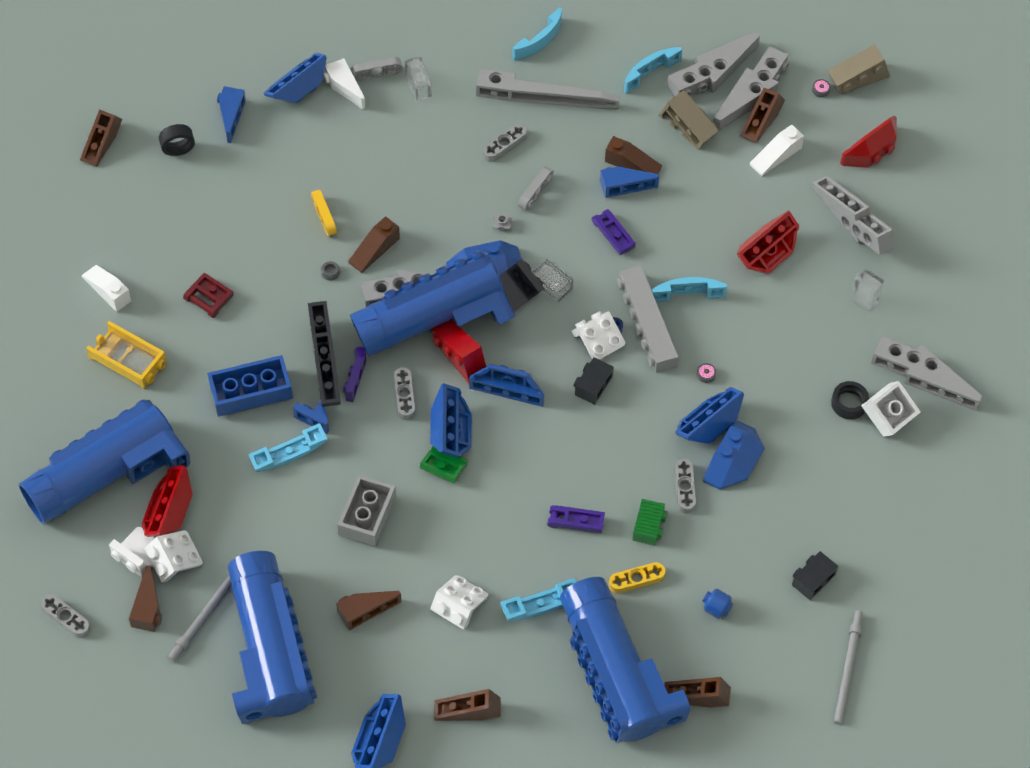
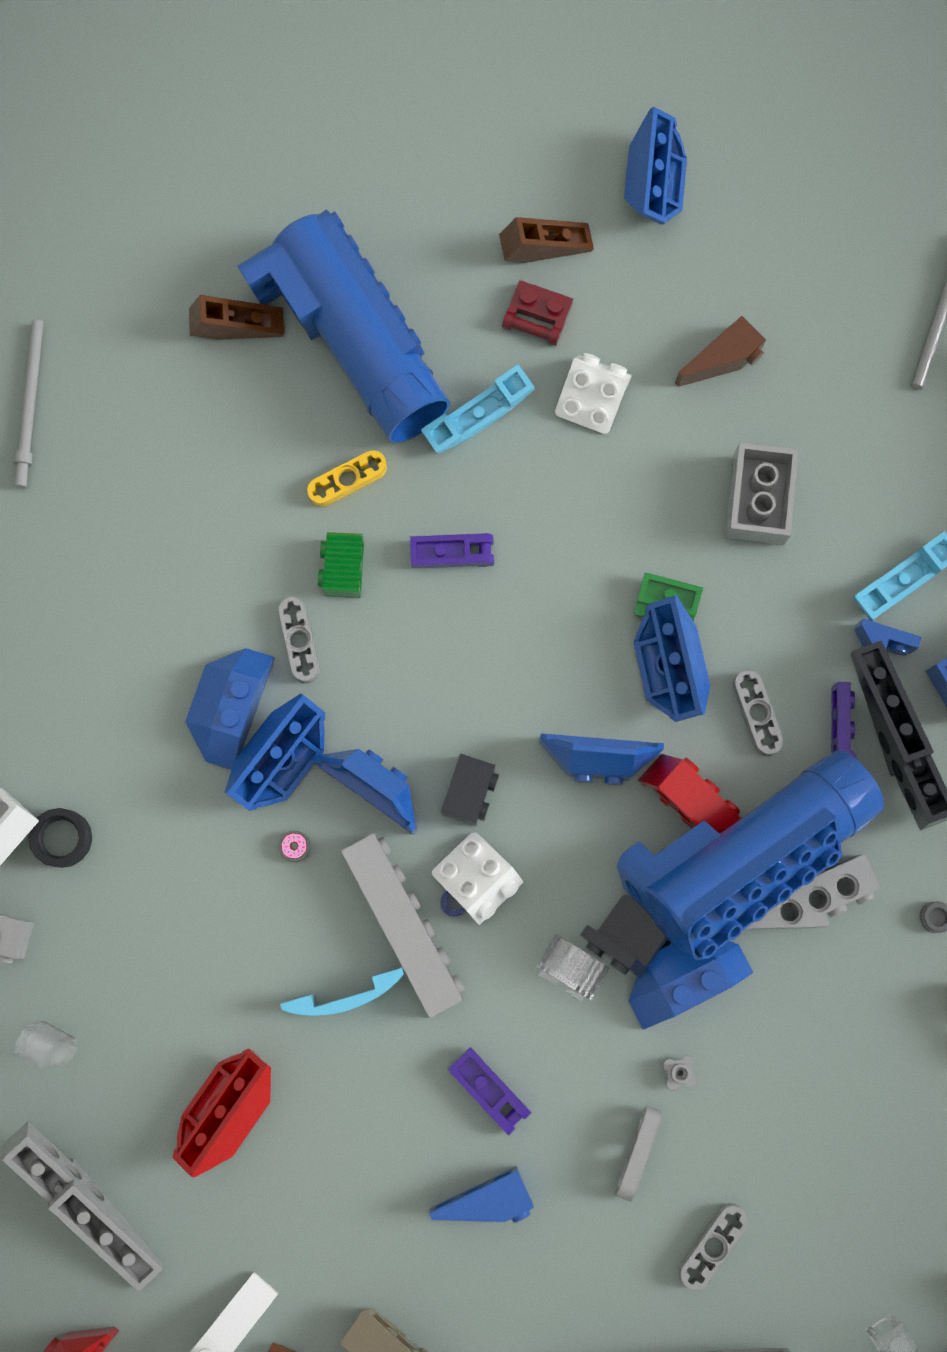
camera: 170 degrees right, 20 degrees up
(274, 656) = (822, 231): blue piece -> none
(375, 244) = (879, 978): reddish brown slope -> none
(481, 667) = (540, 305): none -> dark red plate
(626, 155) = (483, 1253): reddish brown slope -> none
(654, 395) = (372, 782): none -> blue wedge
(717, 603) = (223, 453): blue head -> none
(814, 575) = (88, 527): black brick -> none

